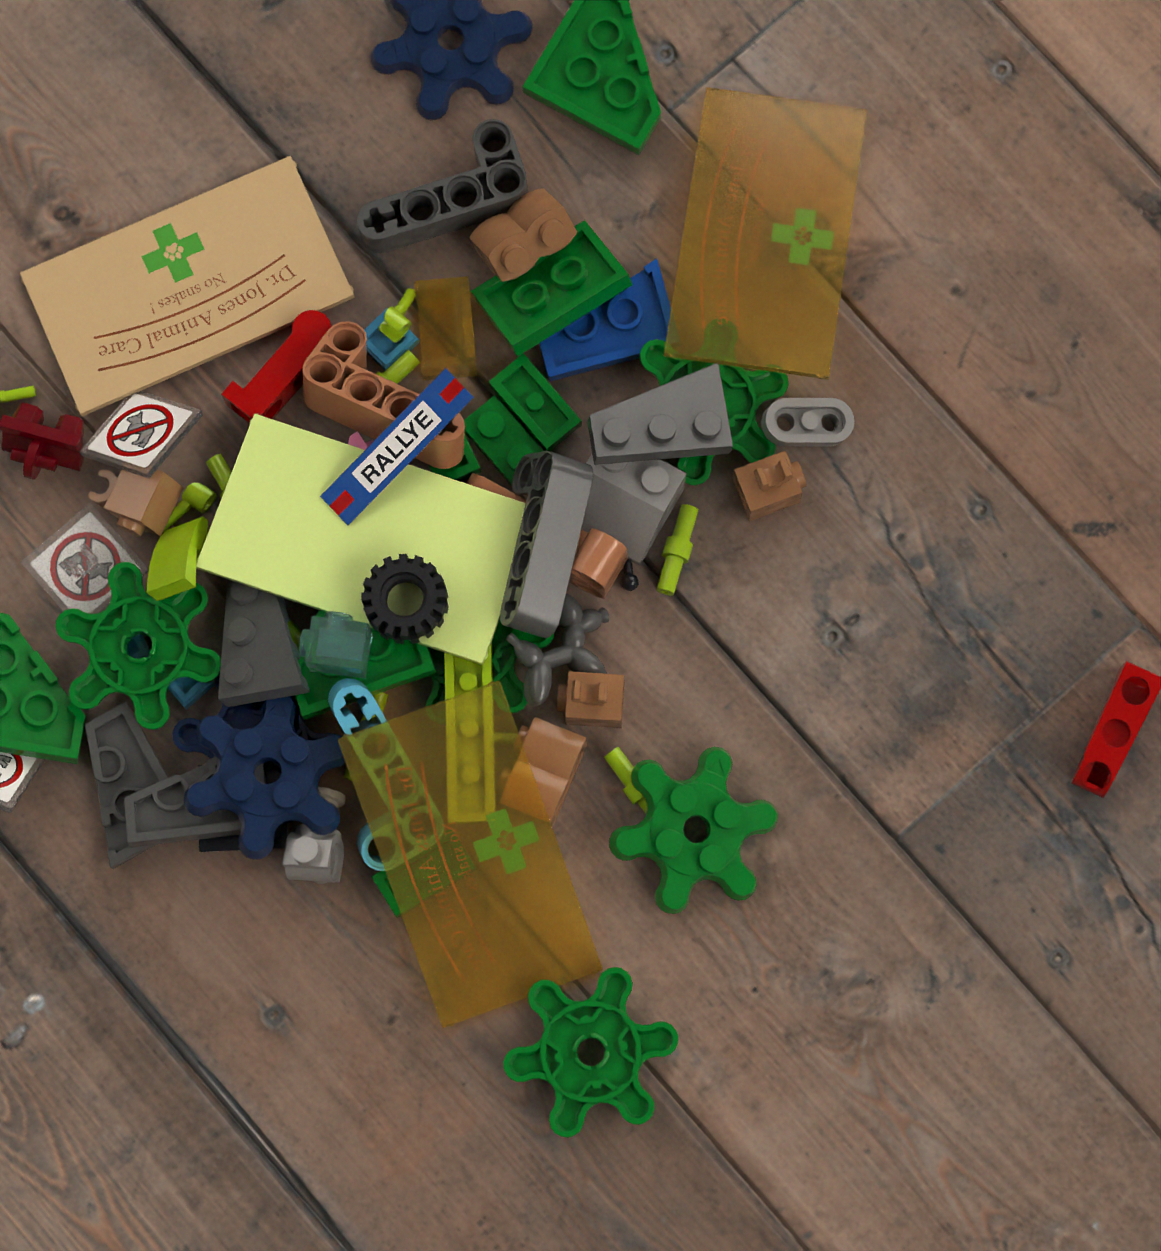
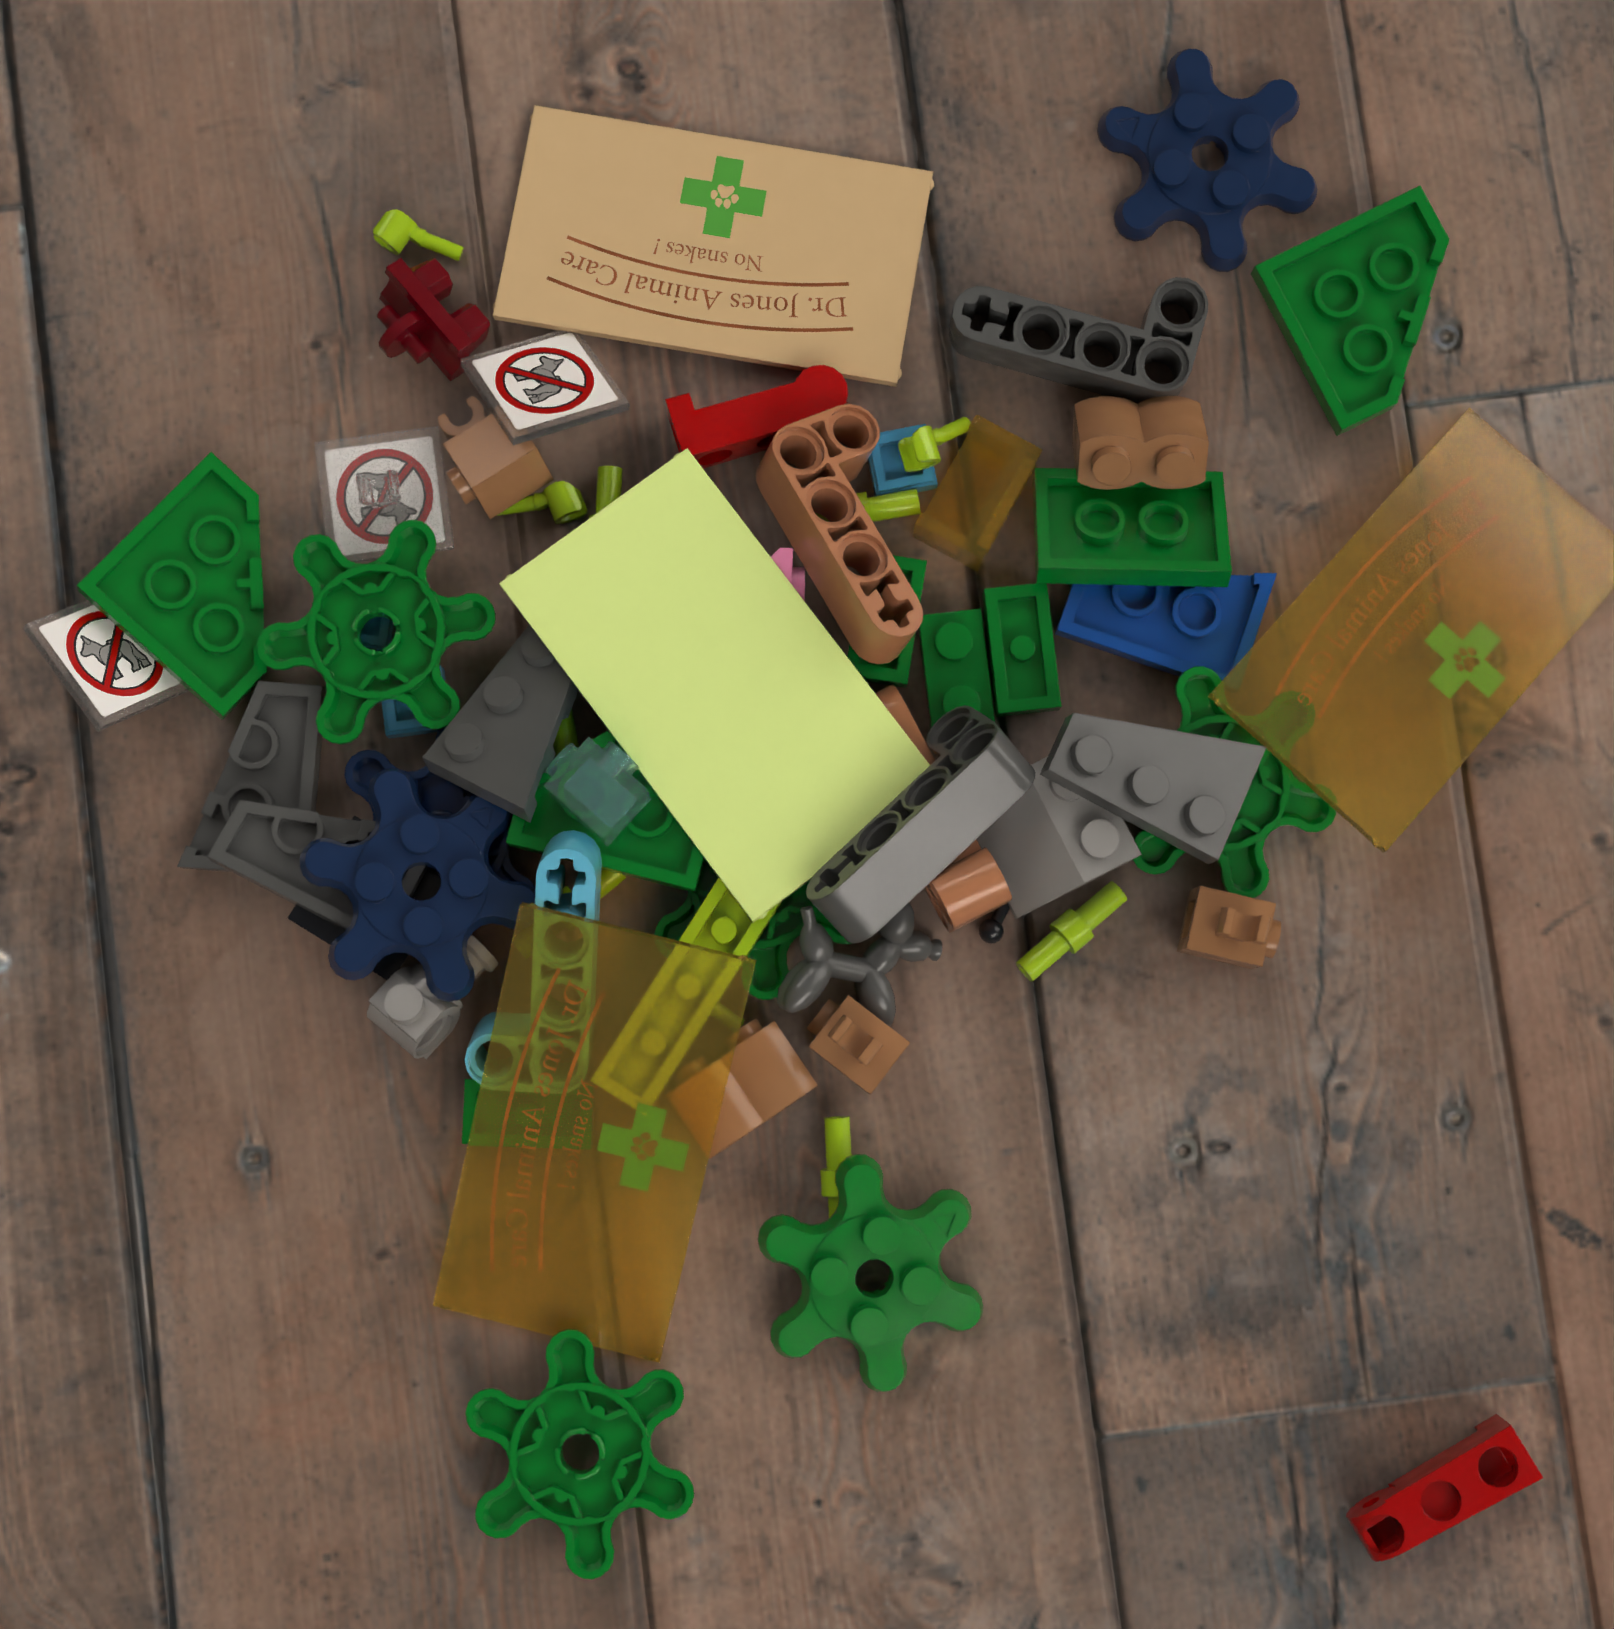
camera: 25 degrees right, 5 degrees up
(174, 559) = (484, 557): lime slope -> none
(397, 446) = (824, 599): sticker -> none
(405, 571) = (702, 748): black tyre -> none
(805, 422) = (1320, 882): light grey plate -> none

